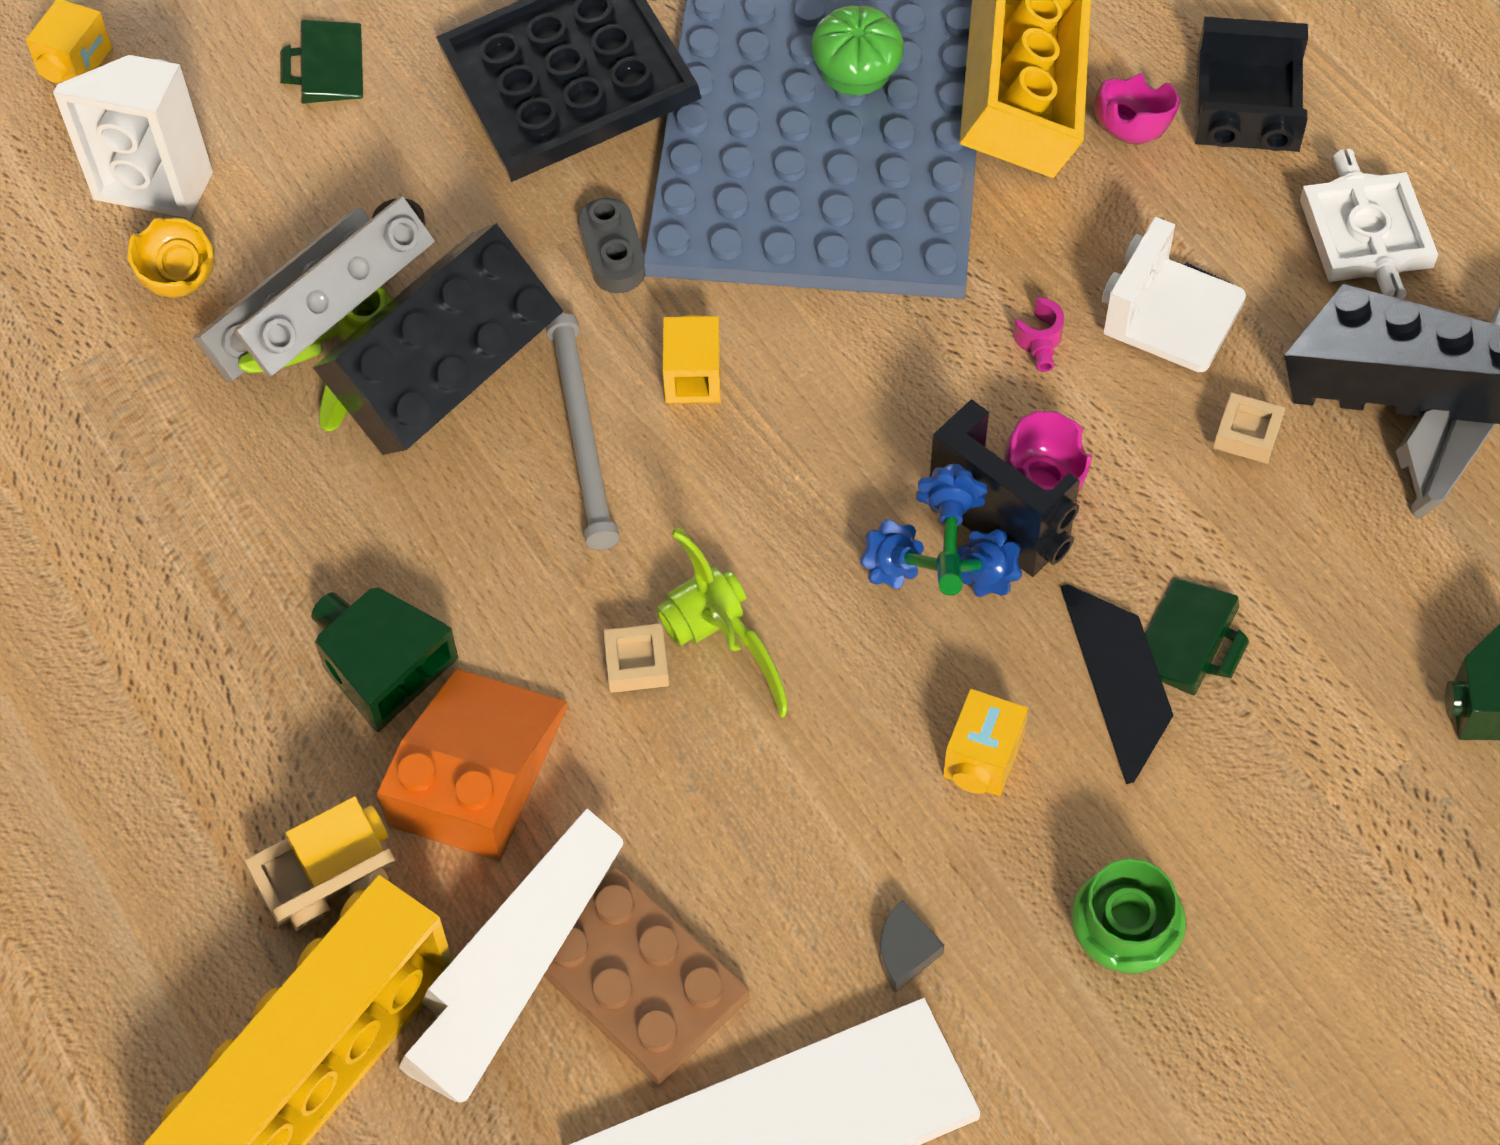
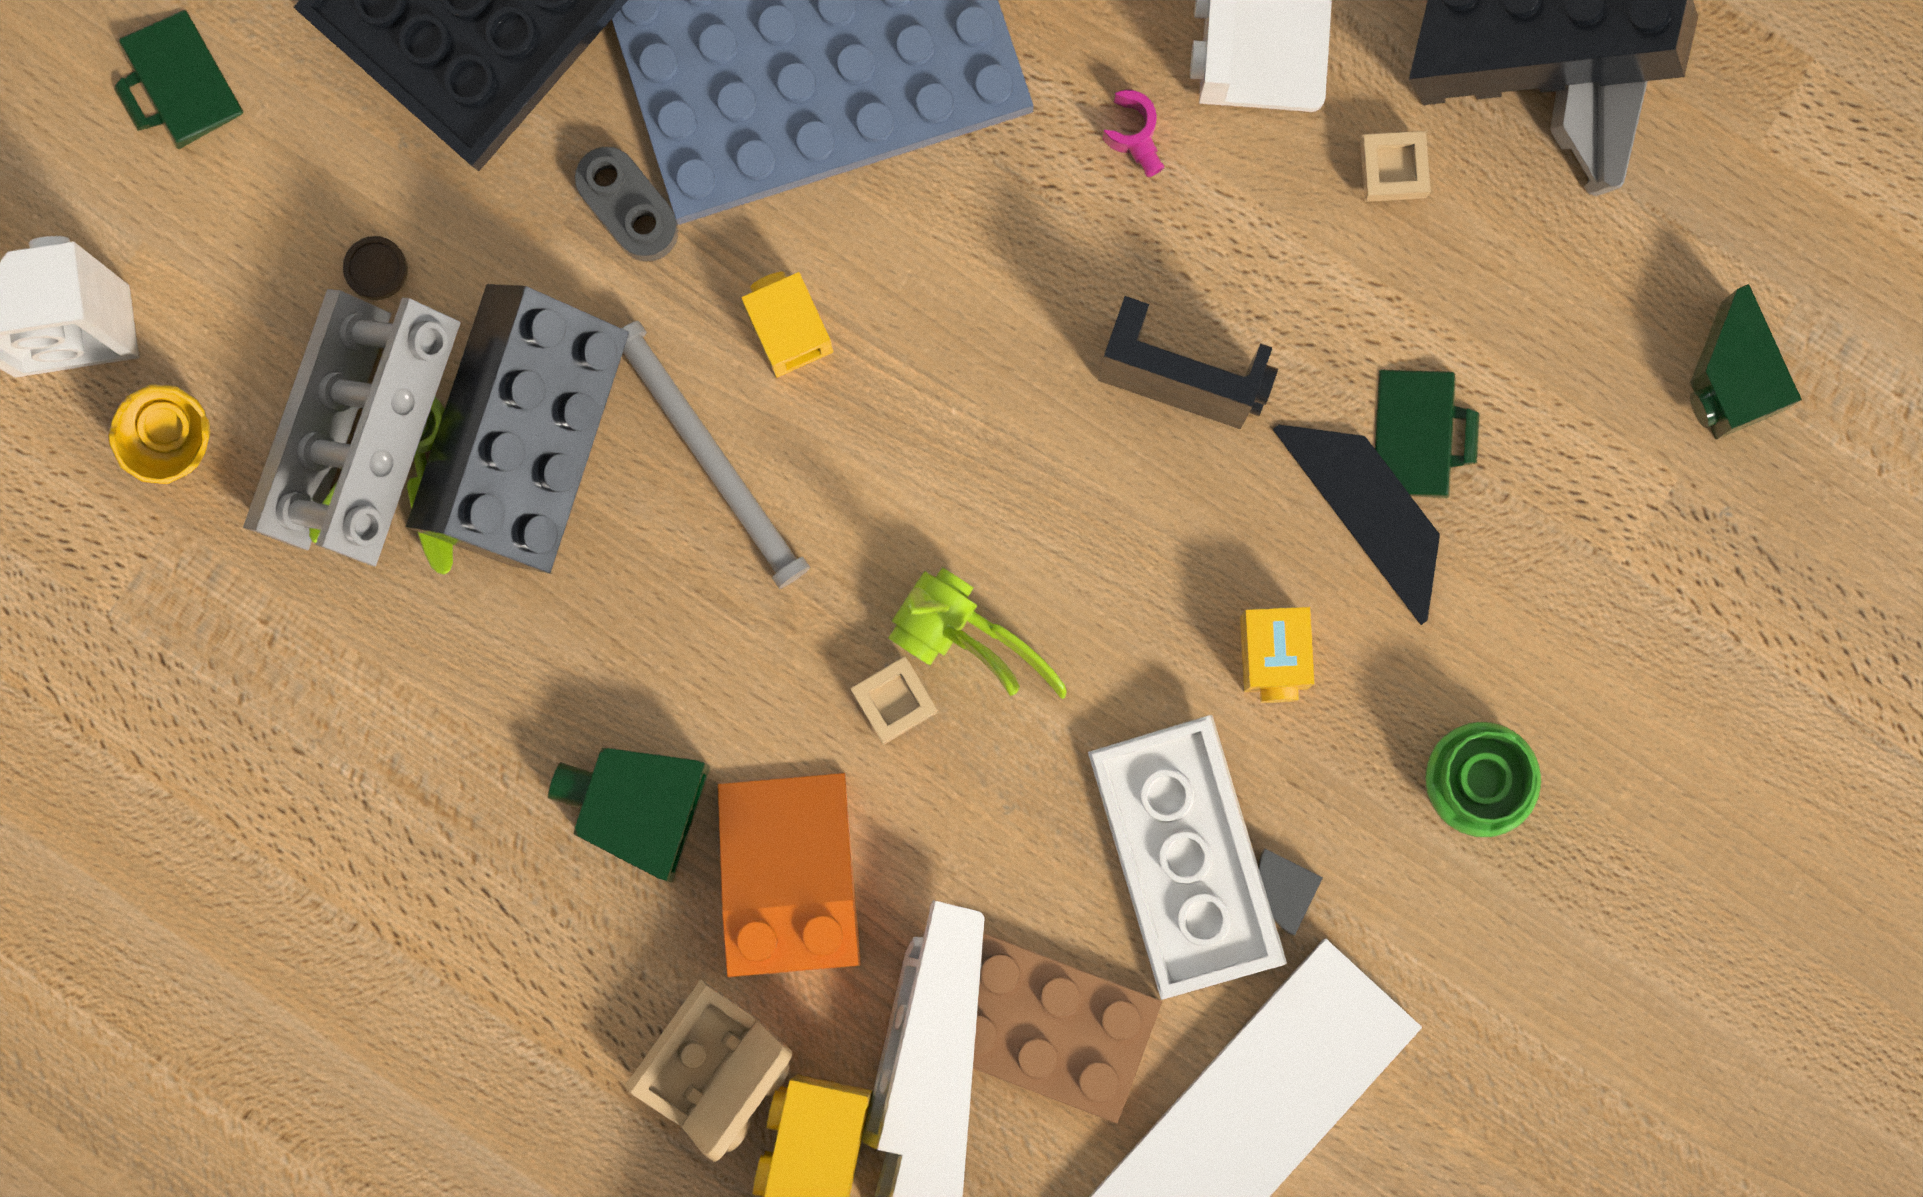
camera: 25 degrees left, 25 degrees up
(337, 840) = (716, 1044): yellow brick -> none
(828, 883) = (1187, 857): none -> white tile
(985, 563) = (1192, 445): blue plant -> none
(1047, 449) = (1208, 296): dark pink hair -> none

